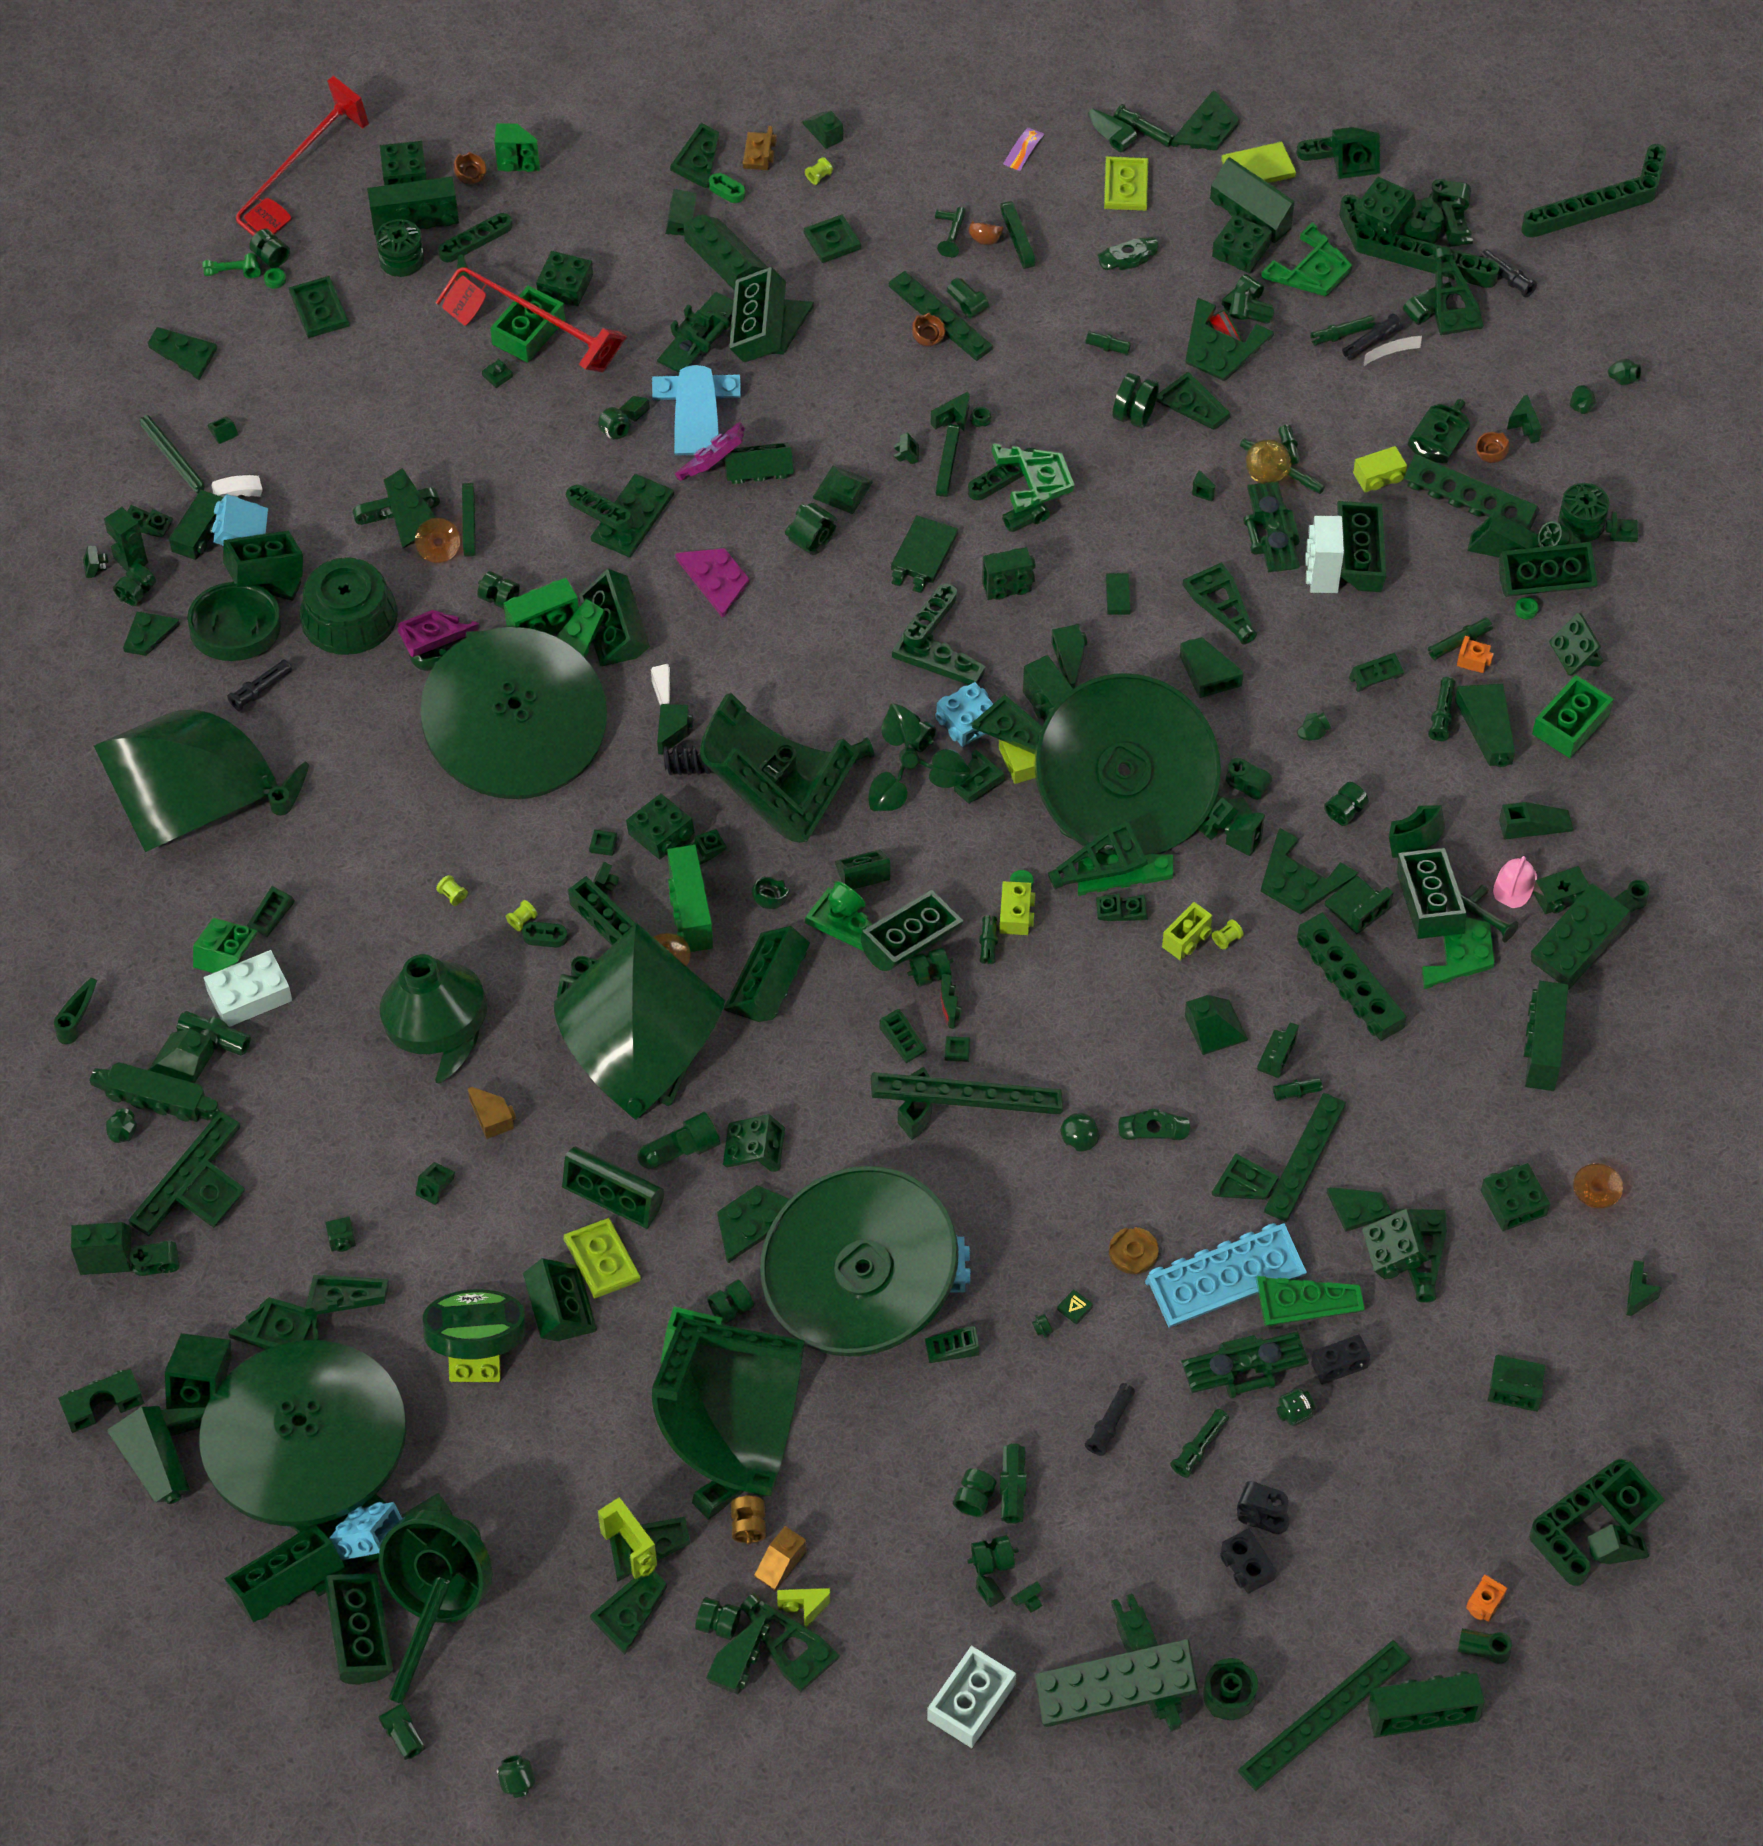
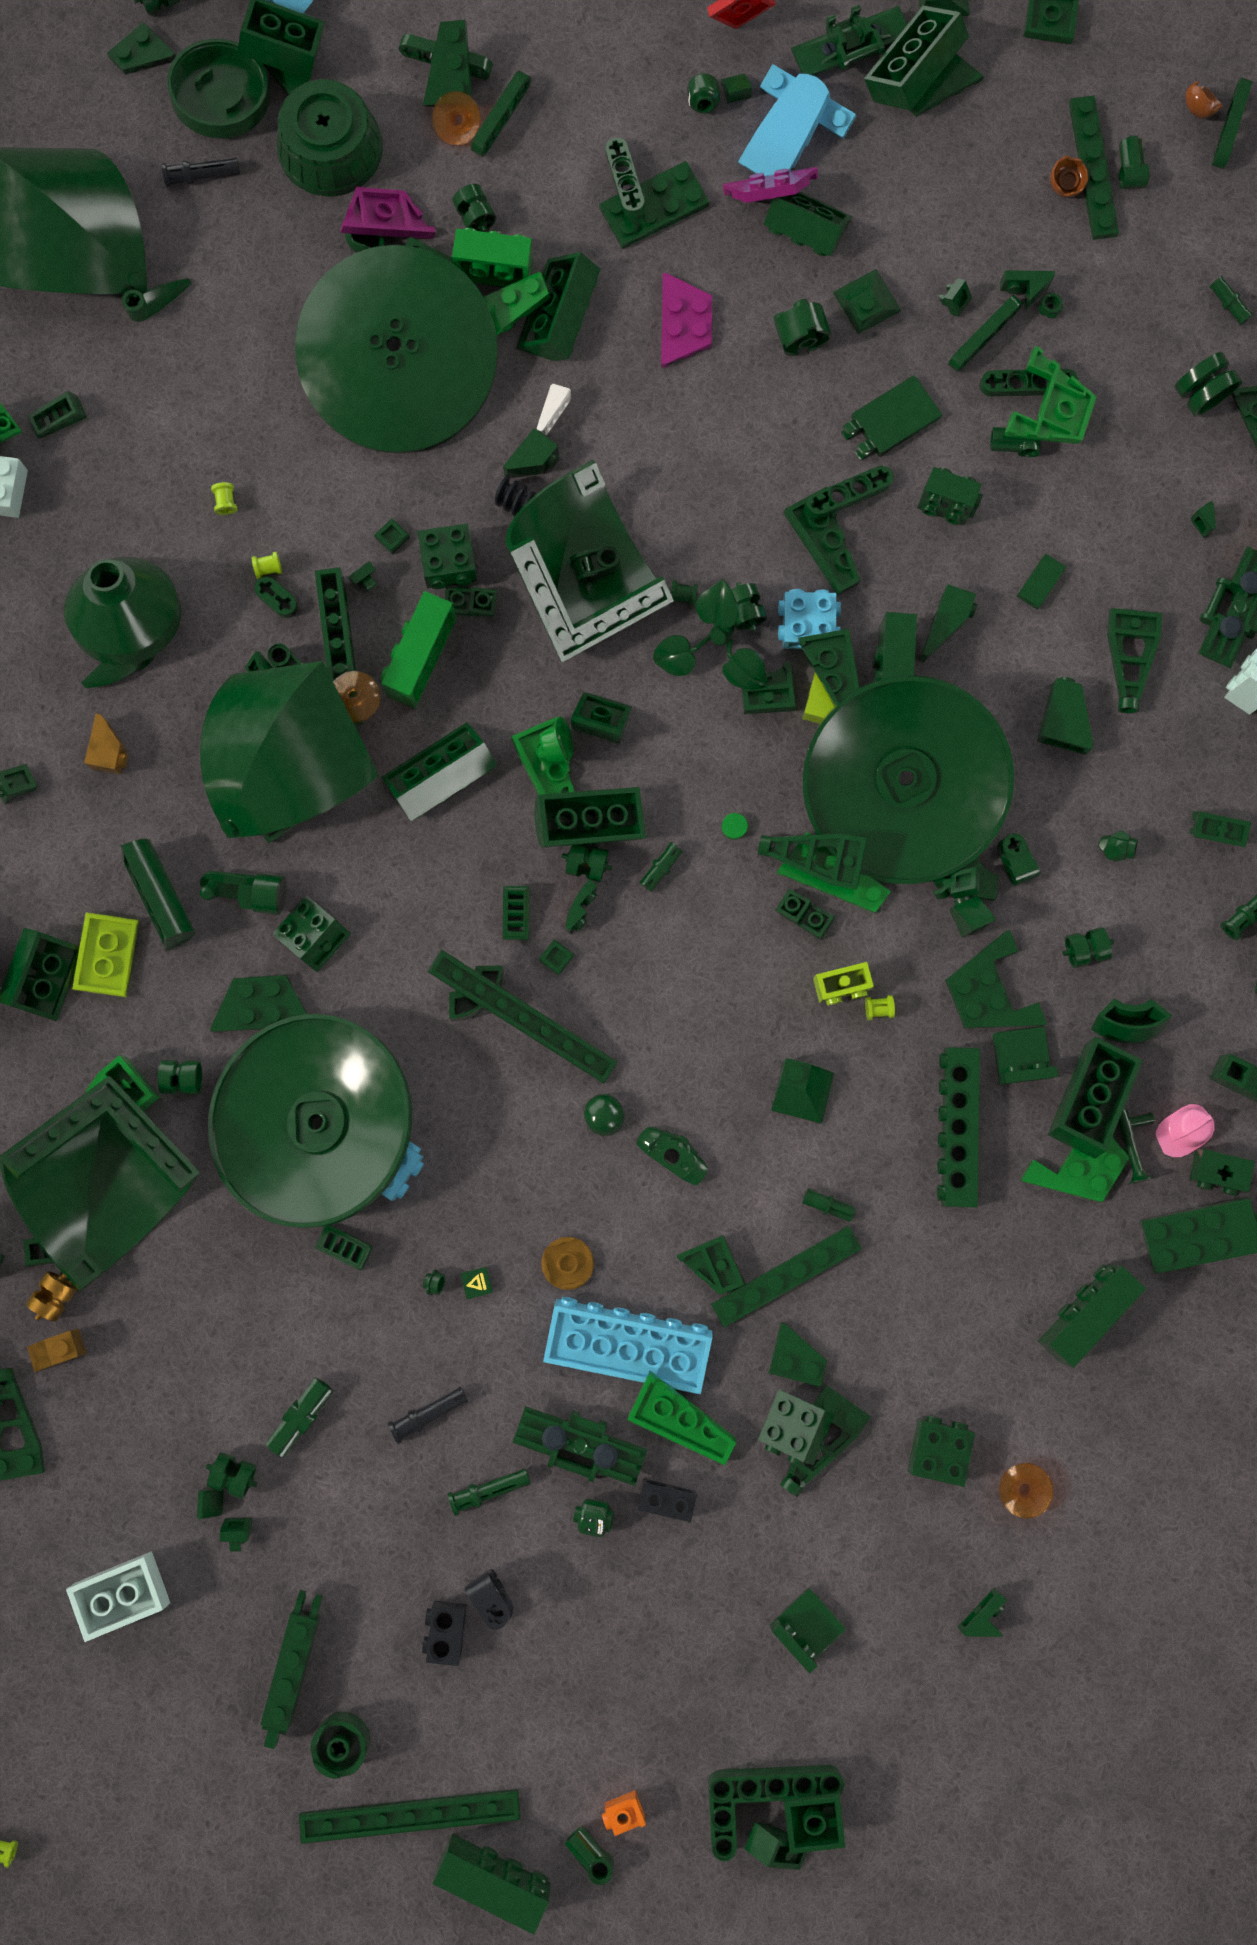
camera: 30 degrees right, 25 degrees up
(769, 892) = (499, 688): dark green hair -> none
(811, 1600) = (50, 1407): lime slope -> none
(949, 248) = (1154, 95): dark green piece -> none
(974, 1496) = (255, 1407): dark green wheel -> none
(1015, 908) = (707, 852): lime brick -> none
(1116, 1683) = (244, 1677): dark green plate -> none
(1278, 1050) = (837, 1157): dark green bracket -> none

